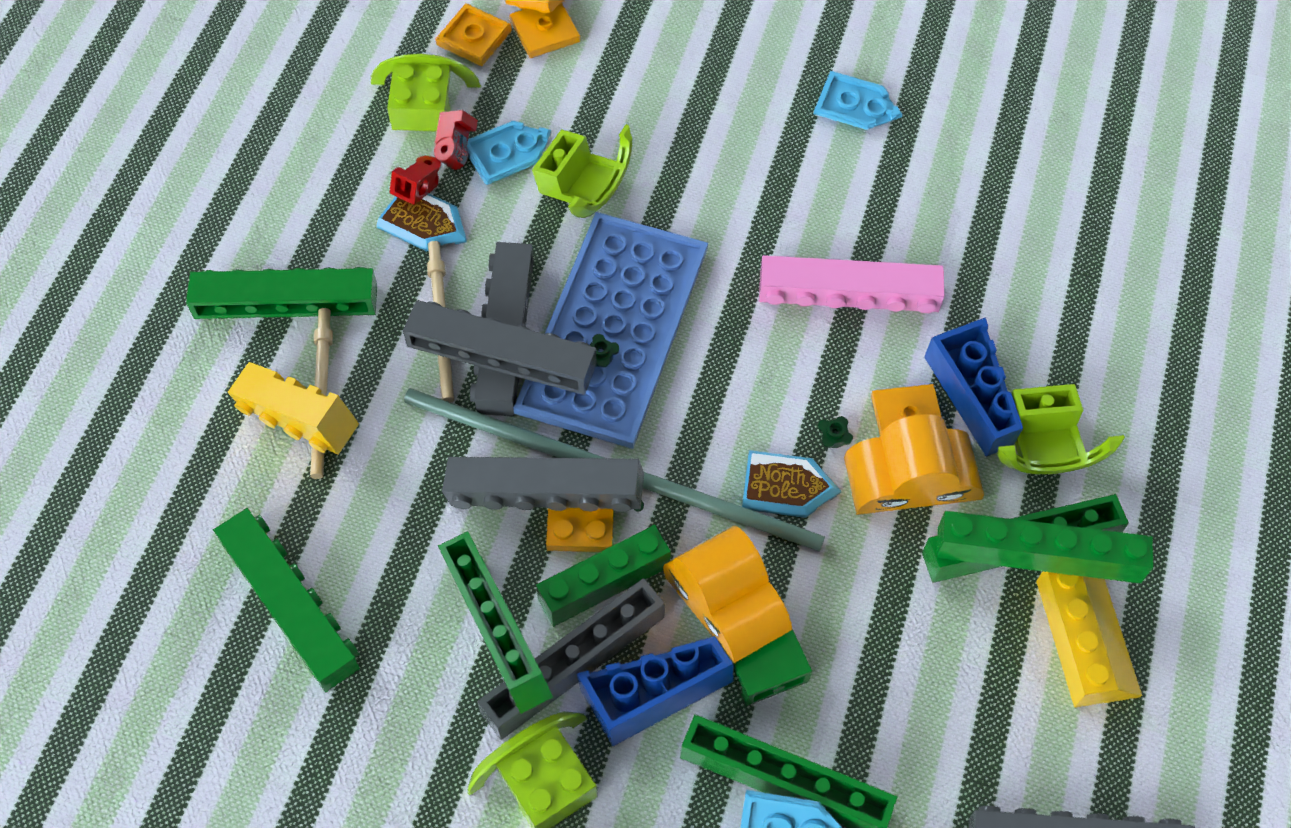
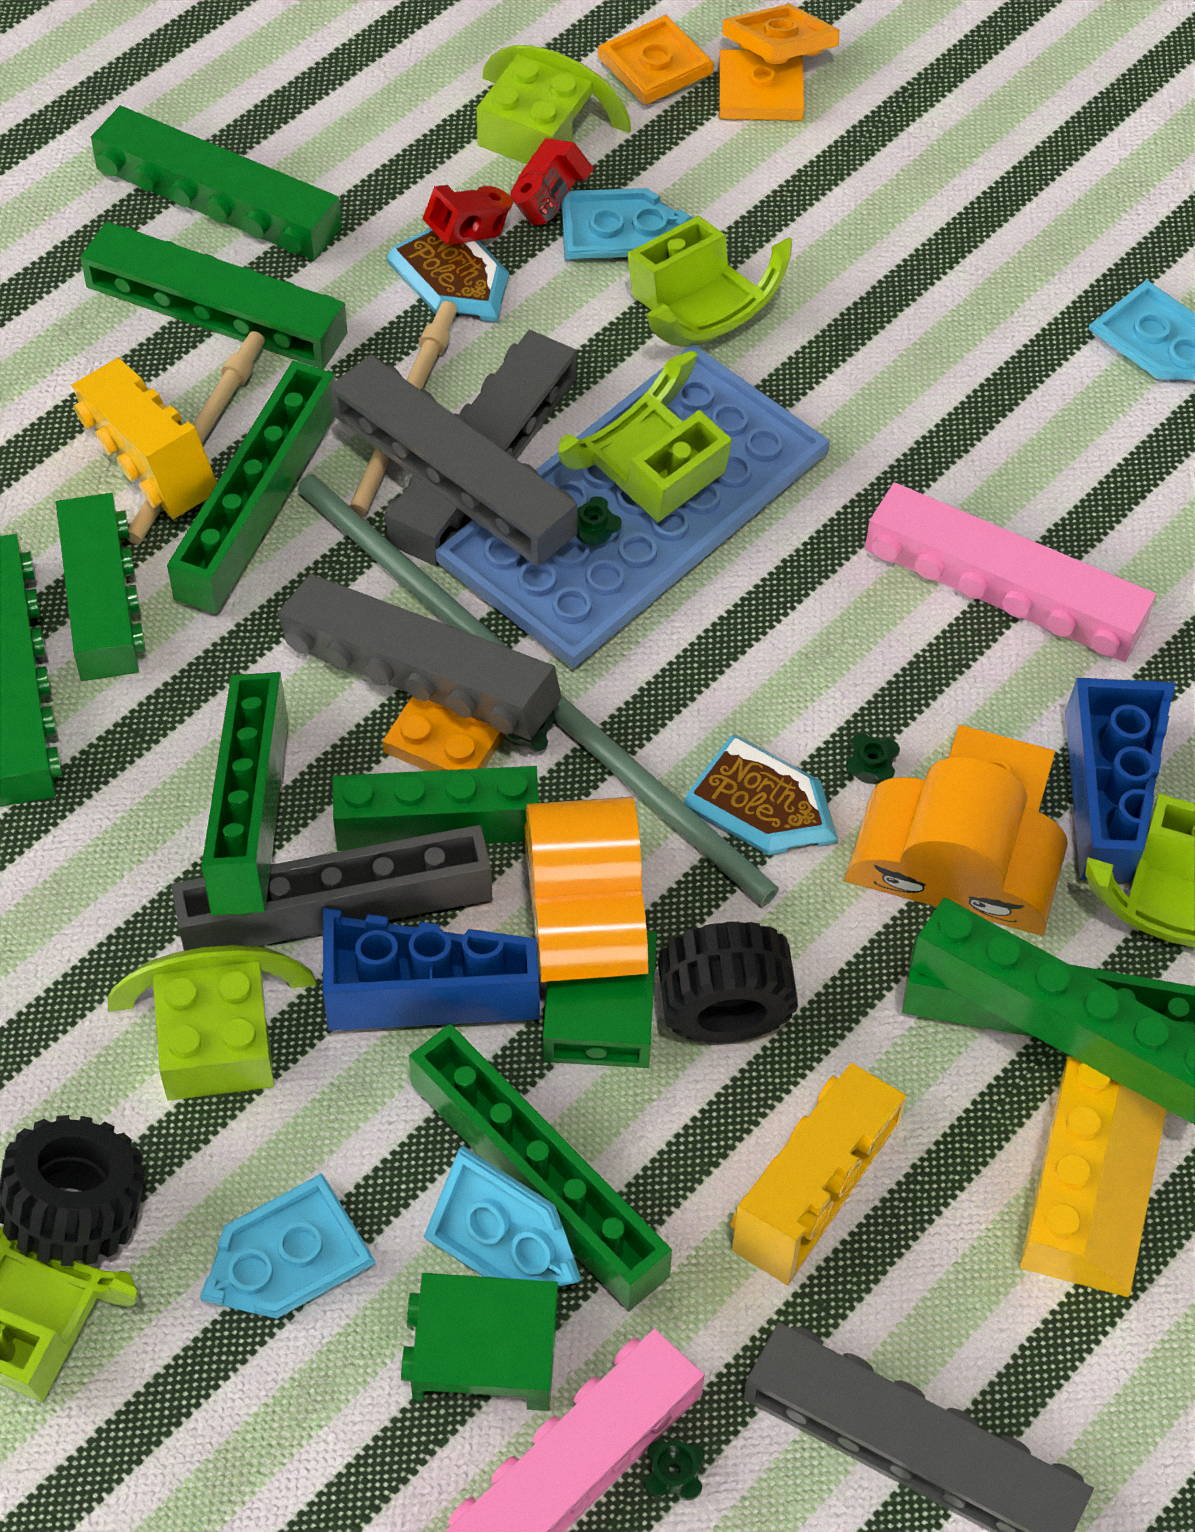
camera: 25 degrees right, 5 degrees down
(242, 217) = (217, 182): none -> green brick
(314, 518) = (97, 586): none -> green brick
(380, 414) = (252, 488): none -> green brick
(614, 292) = (652, 450): none -> lime piece
(837, 613) = (727, 982): none -> black tyre
(943, 704) = (815, 1172): none -> yellow wedge

